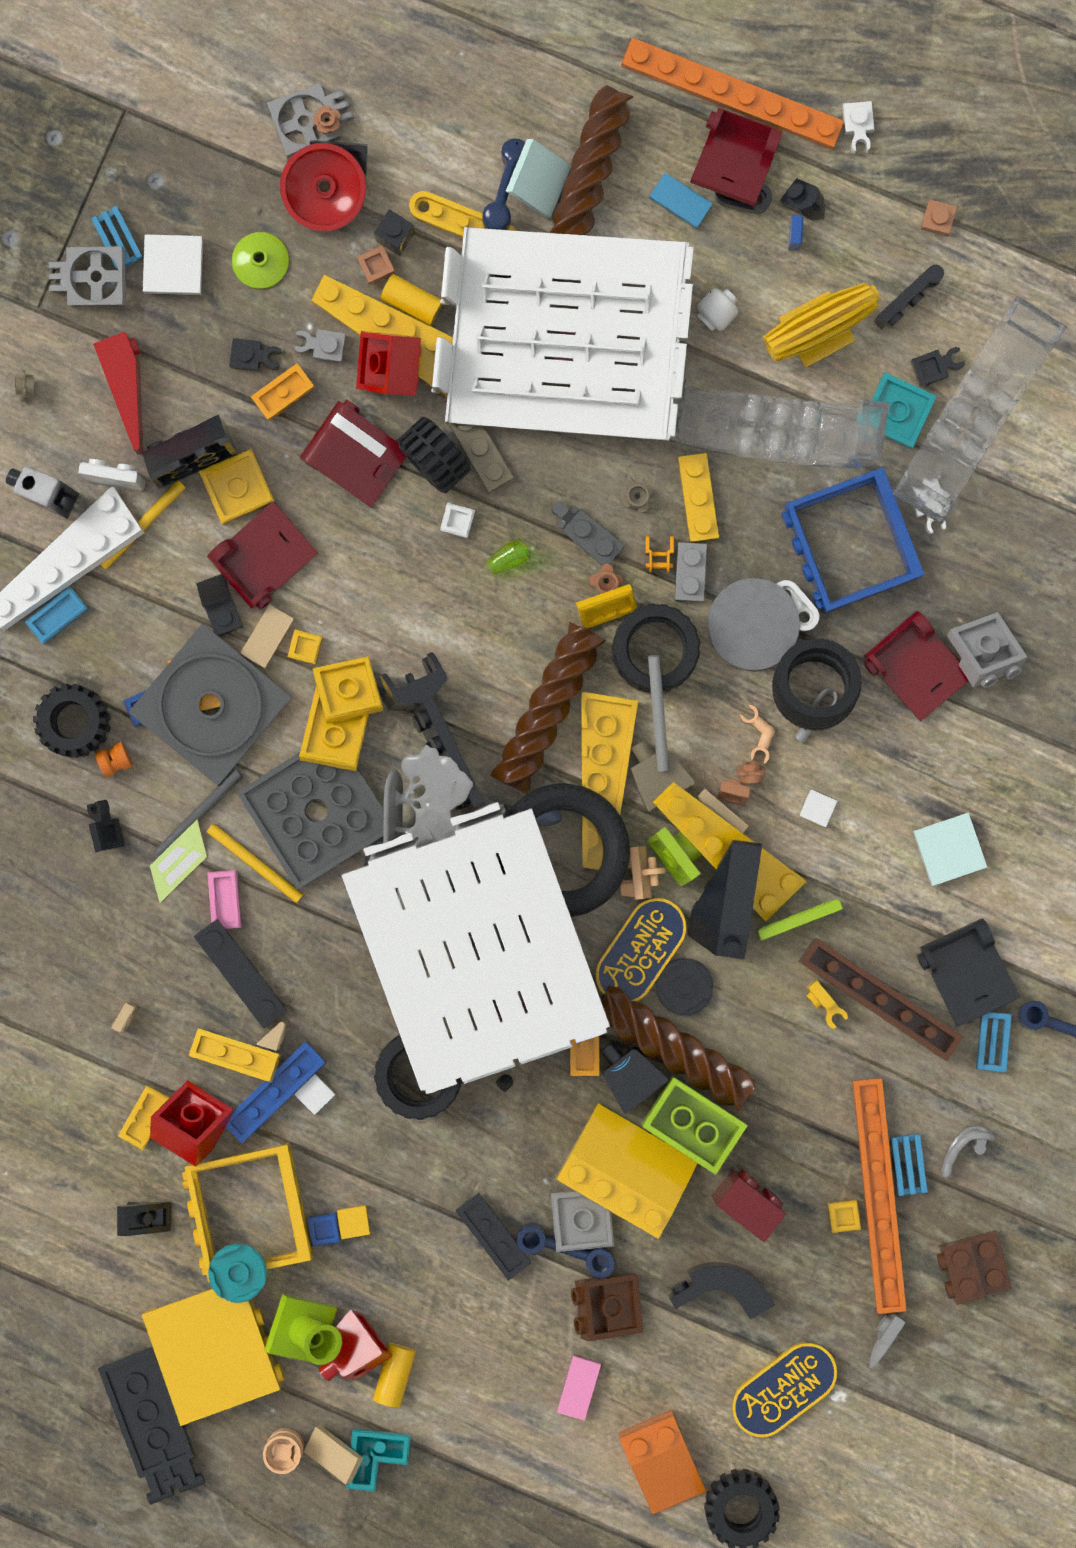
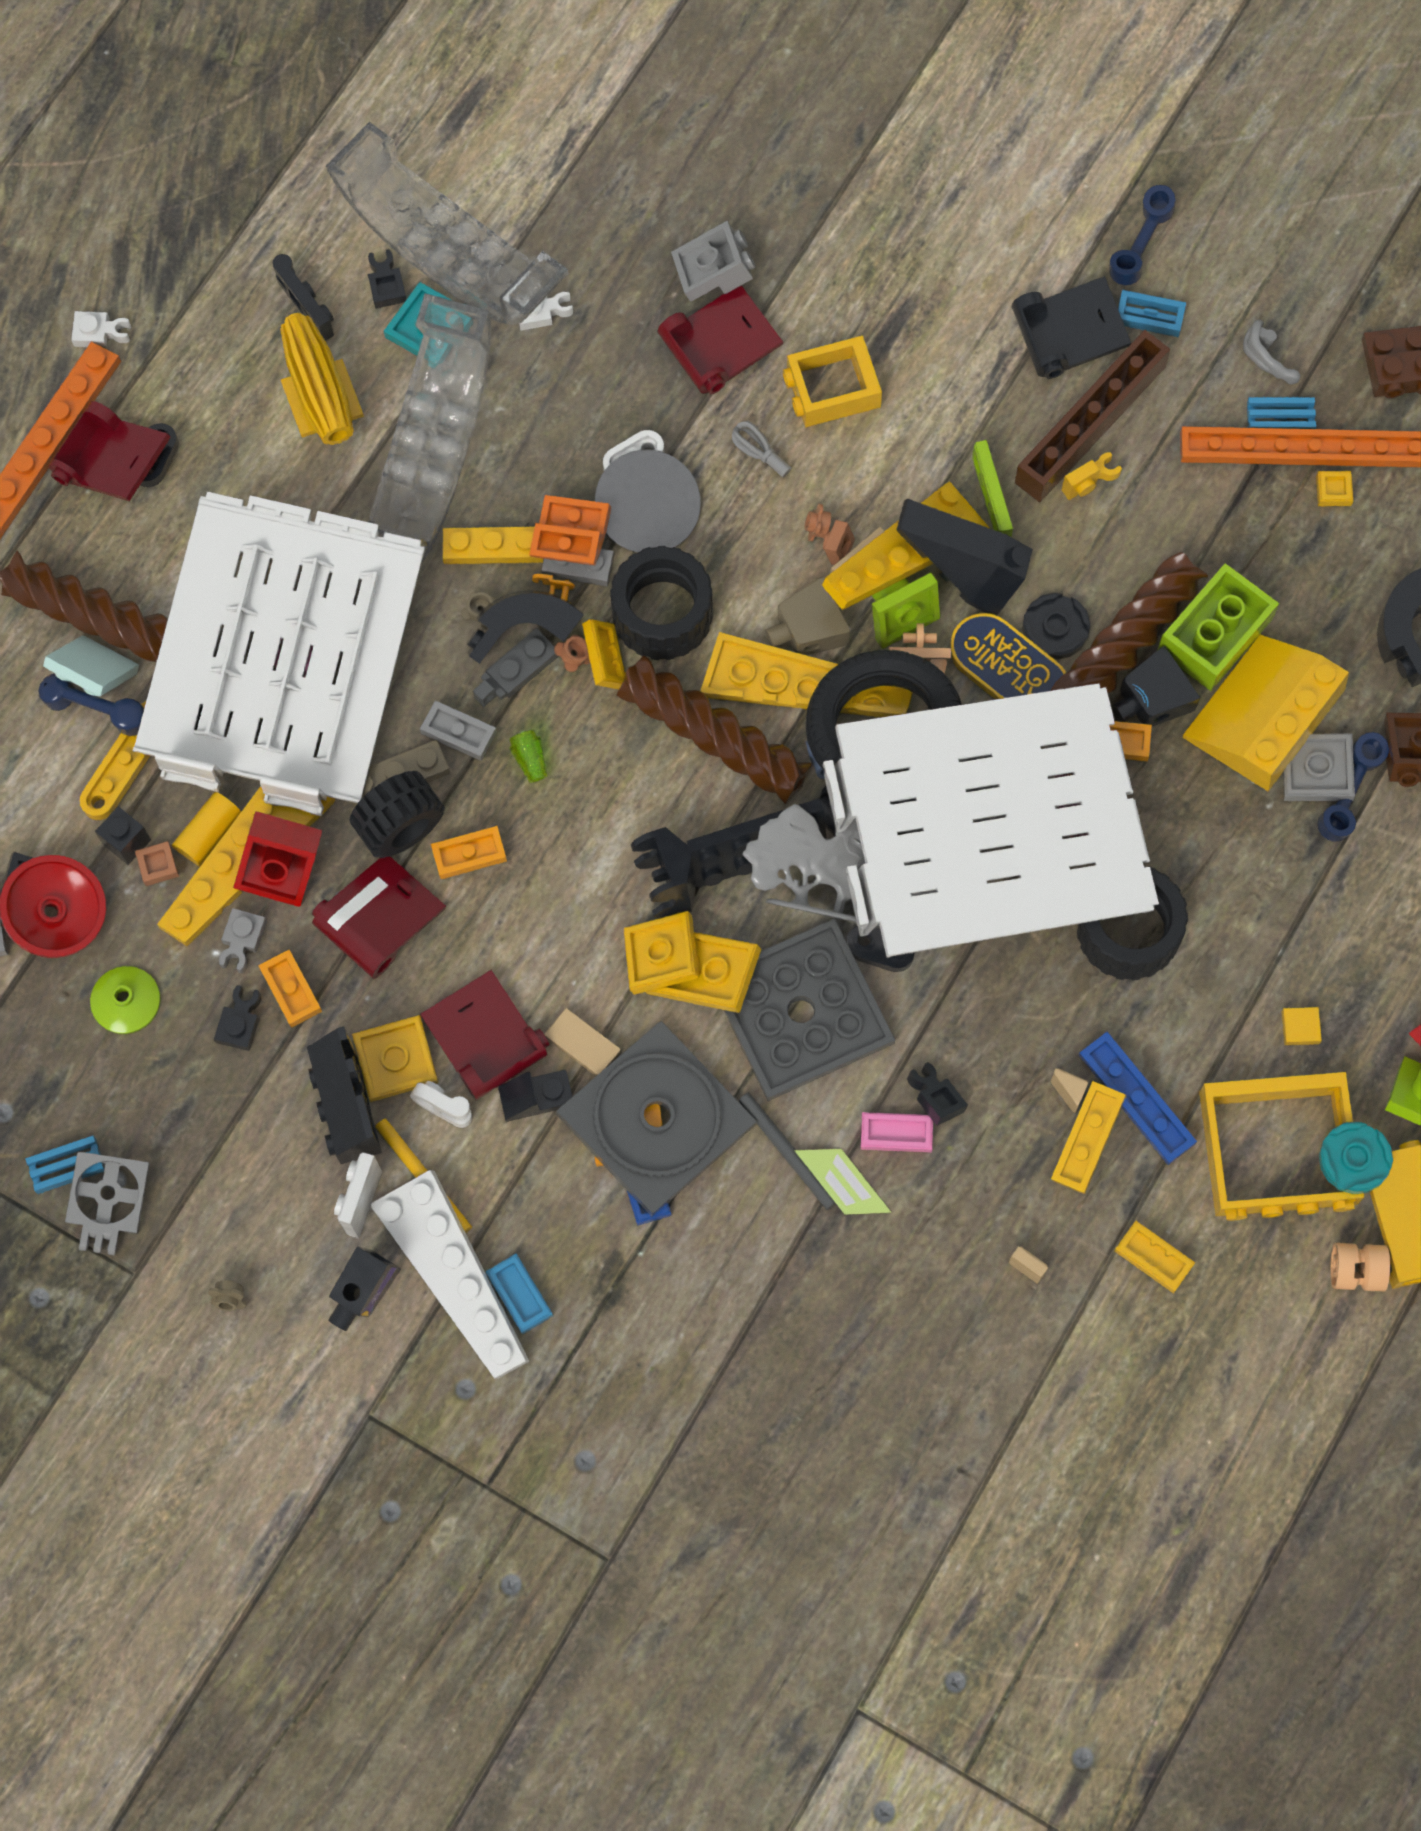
camera: 85 degrees left, 15 degrees down
(48, 714) = (654, 1253): black tyre -> none
(104, 831) = (794, 1261): black plate -> none
(113, 759) = (708, 1241): orange wheel -> none
(122, 372) = (230, 1174): red slope -> none
(143, 1218) = (1278, 1271): black slope -> none
(153, 1282) = (1372, 1267): none -> light nougat wheel
(173, 264) = (111, 1099): white tile -> none
(190, 1123) = (1167, 1197): red slope -> none
(204, 521) = (432, 1098): none -> white plate
(240, 973) = (988, 1121): black plate -> none
(254, 931) = (937, 1098): none -> black plate
(255, 863) = (855, 1091): yellow bar -> none
(305, 647) = (601, 1001): yellow tile -> none
(315, 1094) = (1145, 1051): white tile -> none
(324, 1229) = (1307, 1059): blue tile -> none
(417, 519) = (468, 852): none -> light orange plate
(457, 520) = (477, 809): white tile -> none
(493, 1236) = (1330, 866): black plate -> none
(504, 1082) = (1150, 835): black piece -> none
(523, 494) = (458, 730): none -> light grey plate
(634, 531) = (518, 608): none -> black arch
(658, 713) = (738, 598): light grey bar -> none
(680, 201) = (147, 523): dark azure tile -> none
(713, 561) = (570, 530): none -> orange slope
(717, 309) = (281, 488): white head -> none
(748, 1205) = (1316, 569): dark red brick -> none
(767, 733) = (774, 503): light nougat arm -> none
(795, 232) = (207, 404): blue tile -> none
(805, 200) = (172, 391): black plate -> none
(816, 651) = (706, 410): black tyre -> none
(818, 808) = (867, 461): white tile -> none
(885, 734) = (841, 406): none -> yellow window
(896, 525) = (558, 341): blue window -> none
(938, 217) = (219, 261): nougat plate -> none
(949, 849) = (930, 329): light aqua tile -> none

